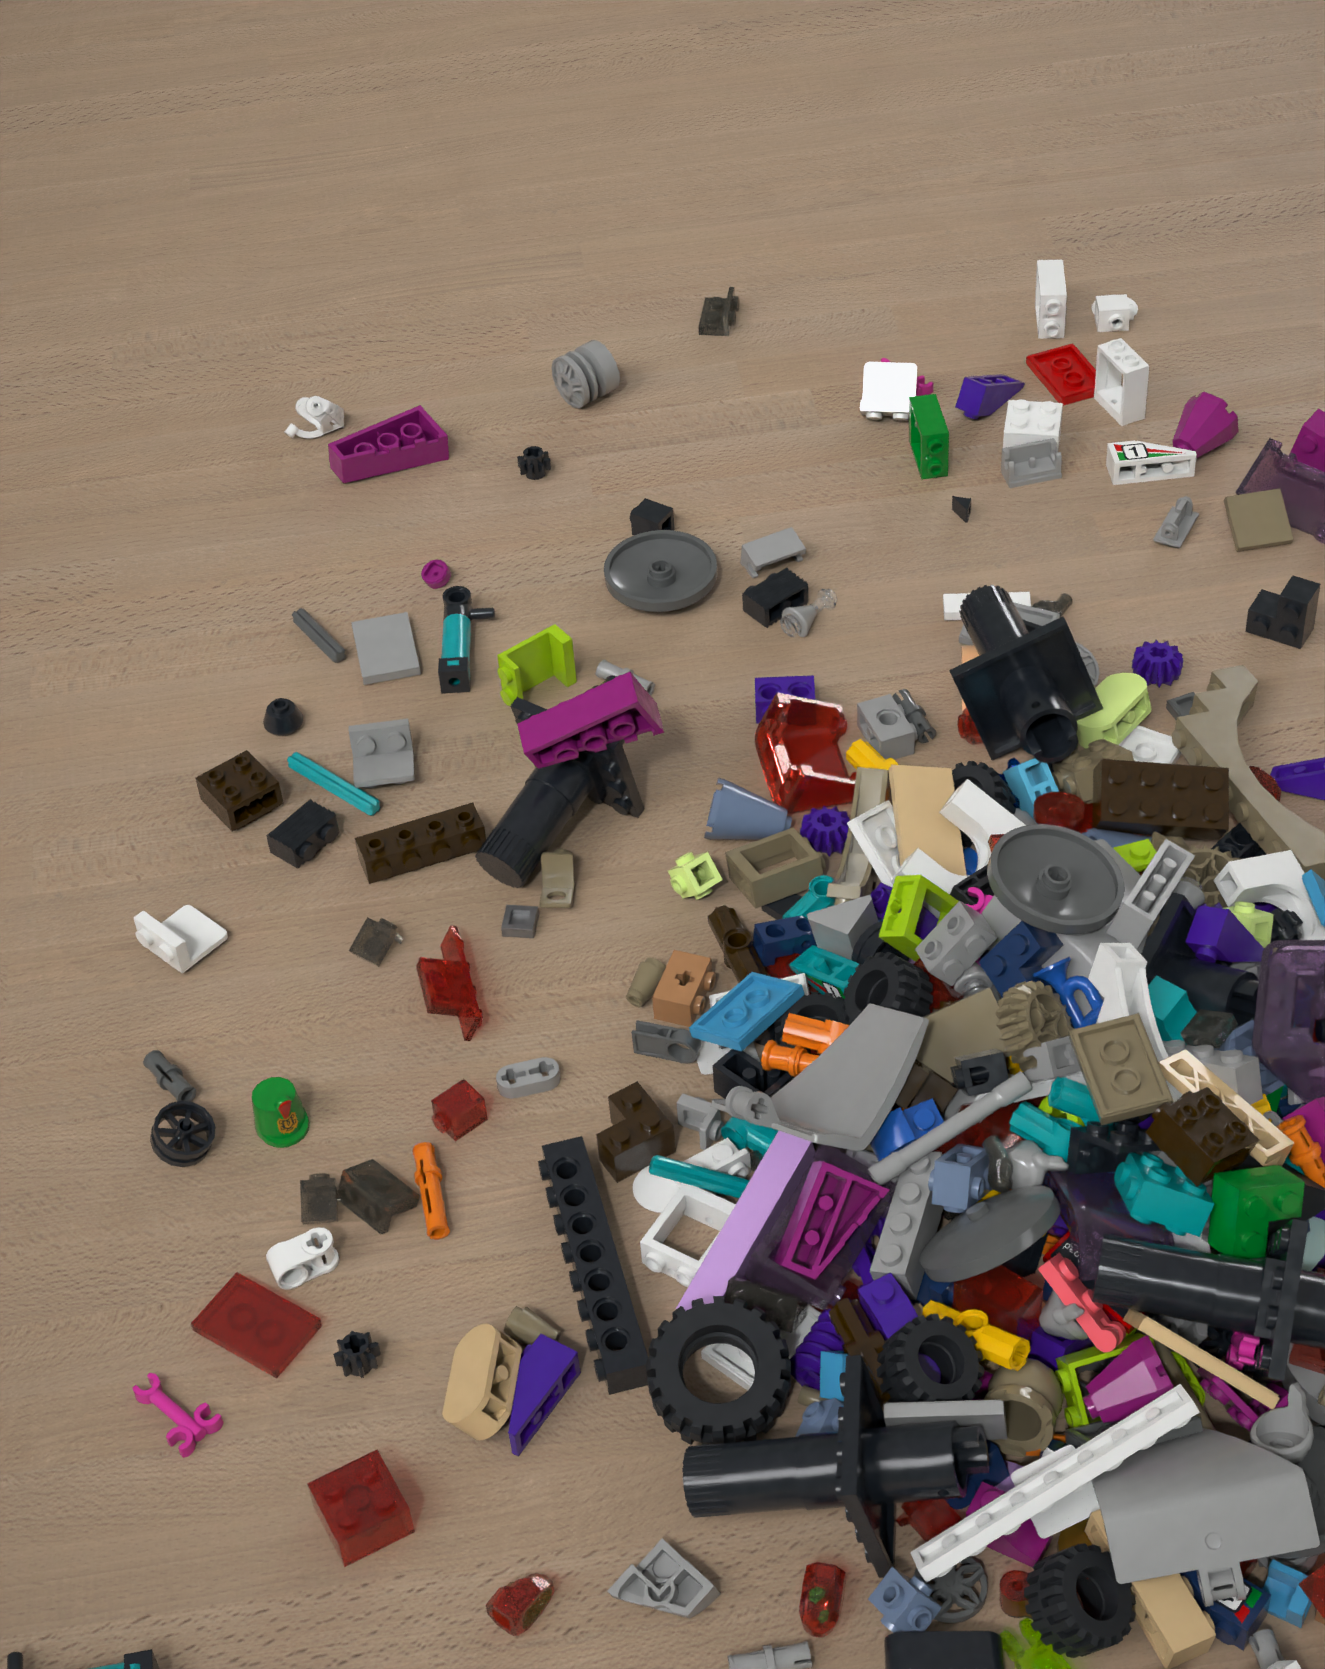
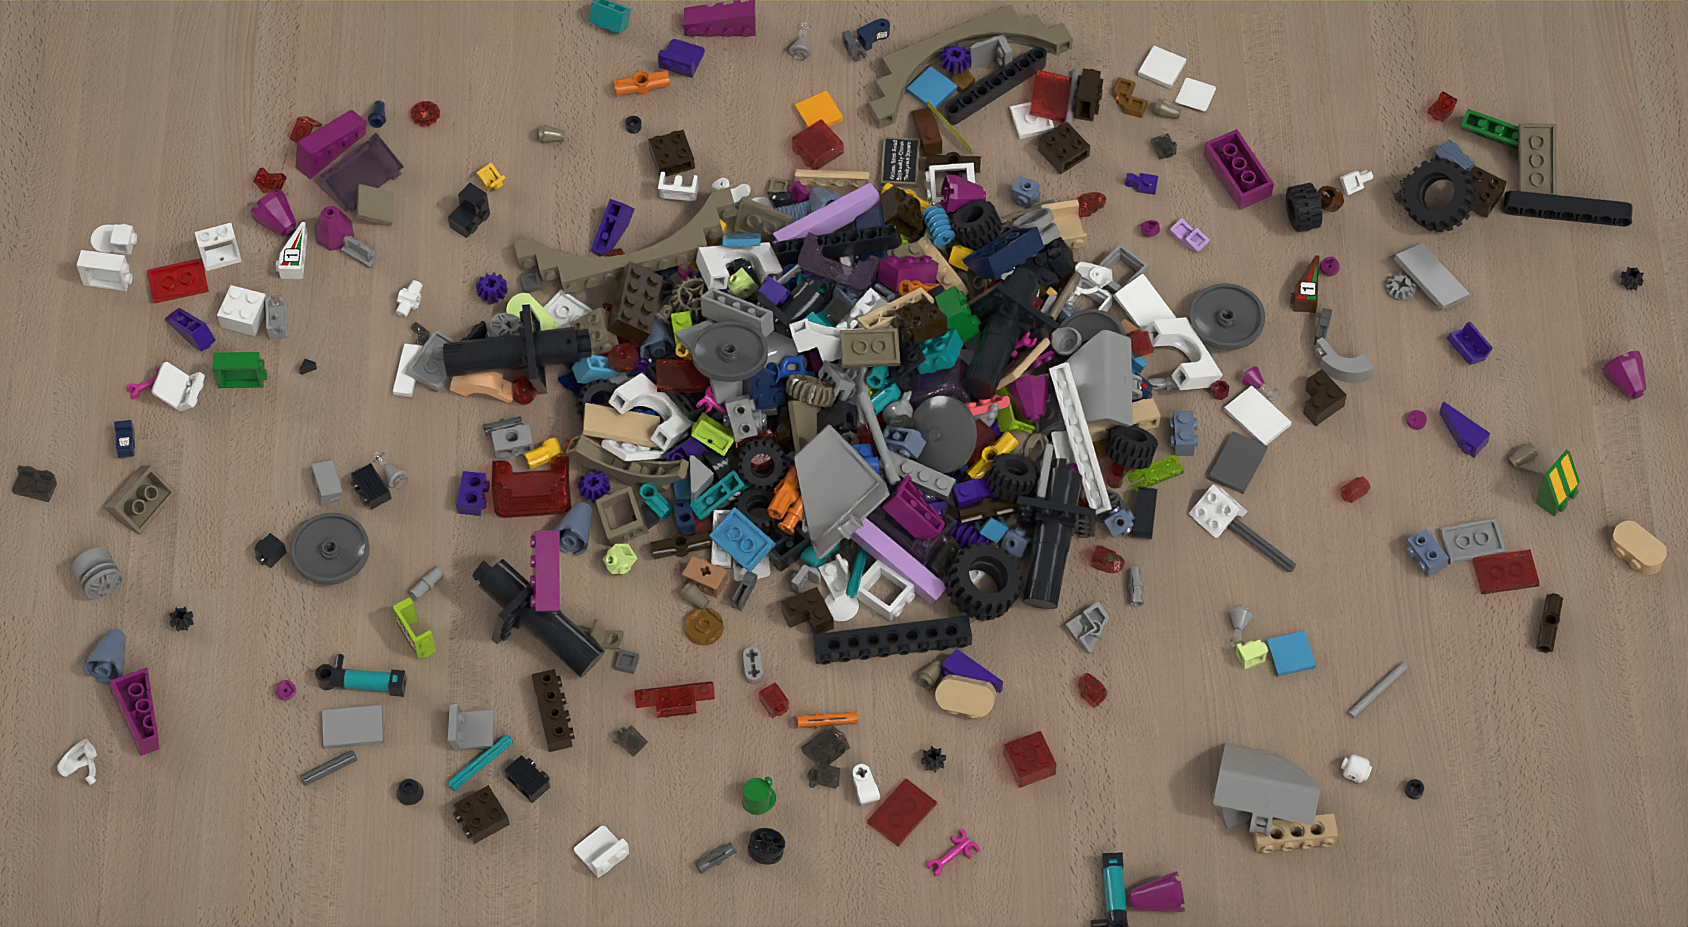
camera: 85 degrees left, 15 degrees up
(468, 408) = (107, 658): none -> sand blue cone
(595, 1006) = (703, 626): none -> pearl gold tile
(710, 397) = (140, 499): none -> dark tan slope
(800, 371) = (125, 438): none -> dark blue leg
(1108, 583) = (409, 298): none -> white axle
(1205, 483) = (332, 228): none -> magenta cone
(1259, 417) = (269, 182): none -> clear red bracket

